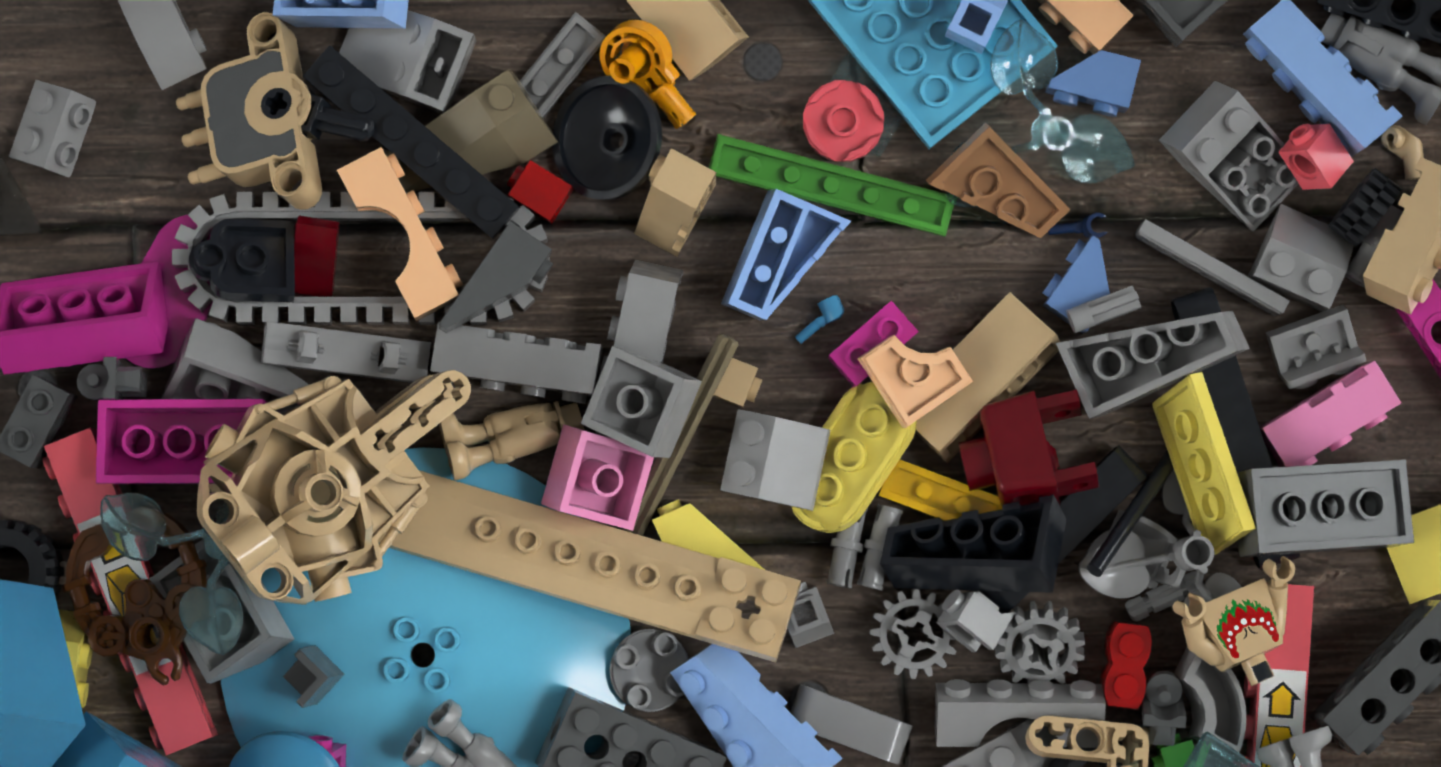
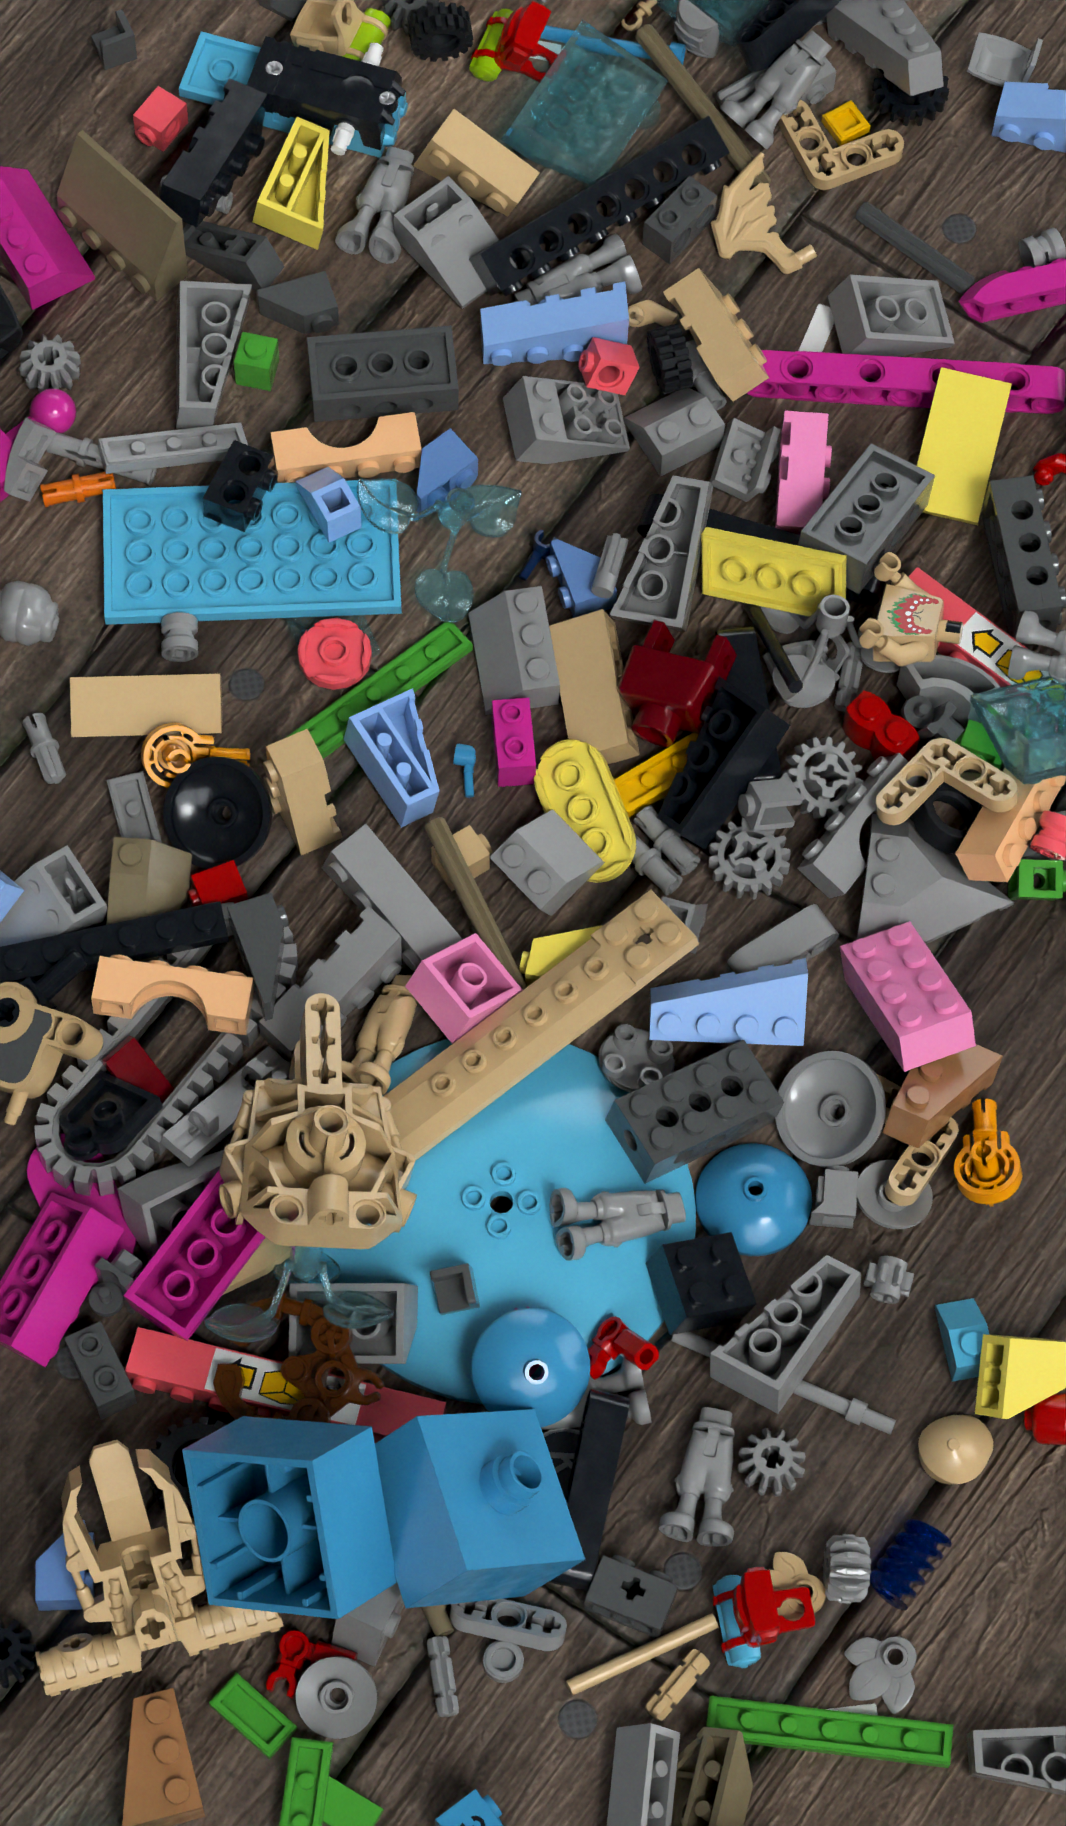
camera: 55 degrees left, 20 degrees down
(641, 402) = (432, 908): light grey slope -> none
(913, 380) = (561, 722): light nougat tile -> none
(963, 279) = (515, 649): none -> light grey slope
(999, 181) = (463, 577): medium nougat wing -> none
(1211, 268) = (632, 488): light grey tile -> none

